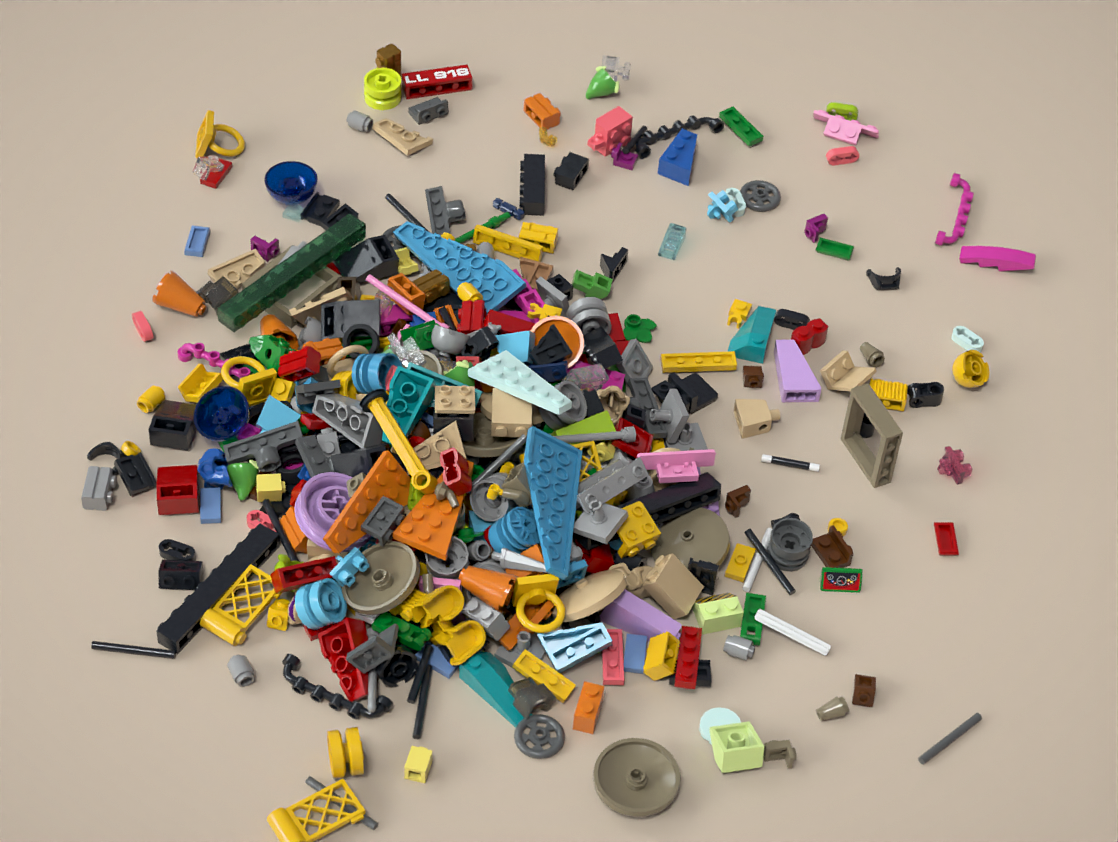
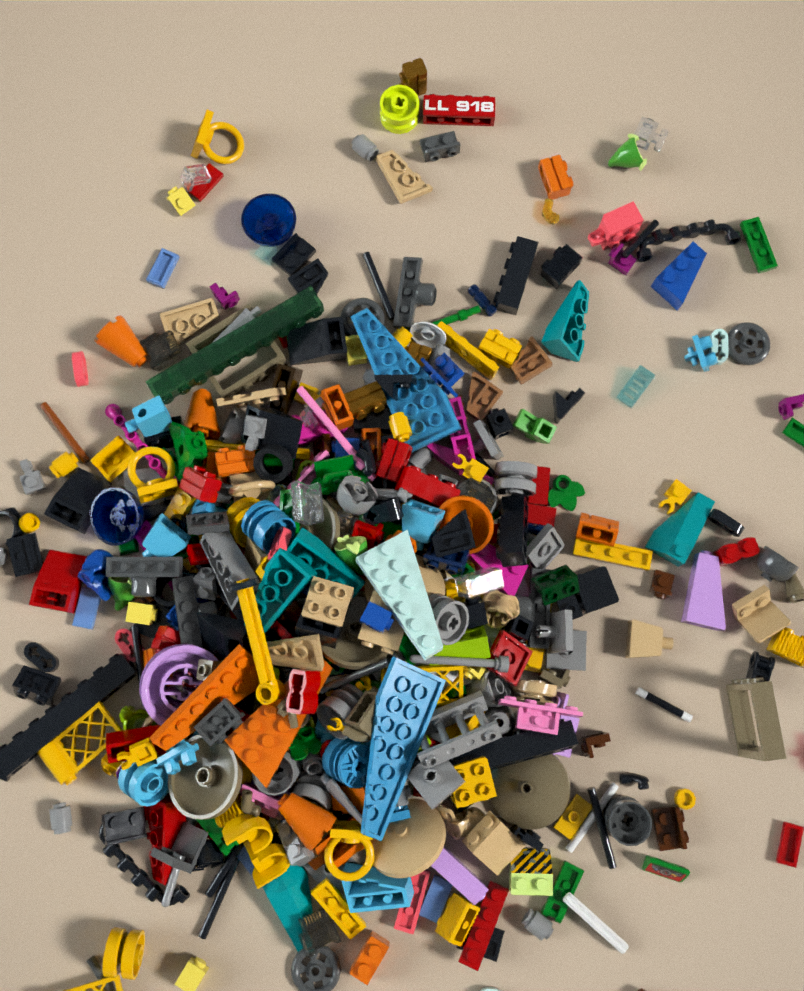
camera: 20 degrees right, 30 degrees up
(119, 419) = (32, 480): none -> light grey plate
(140, 377) = (65, 433): none -> dark orange bar
(198, 187) = (180, 200): none -> light yellow bracket
(231, 336) = (150, 418): none -> medium azure torso
(308, 658) = (124, 825): none -> black plate
(312, 570) = (140, 752): none -> yellow plate
(336, 317) = (255, 429): none -> light grey plate
(448, 320) = (368, 460): none -> black arm
(449, 263) = (391, 382): none -> black slope
(478, 233) = (428, 334): none -> white dish
(496, 250) = (444, 372): none -> blue bracket
(504, 399) = (377, 618): none -> blue brick
(570, 242) = (531, 362): none -> medium nougat wing
(592, 211) = (565, 329): none -> teal wedge
(657, 381) = (556, 584): none -> dark green bracket
(677, 343) = (597, 529): none -> orange brick
(848, 336) = (775, 566): none -> dark grey cylinder

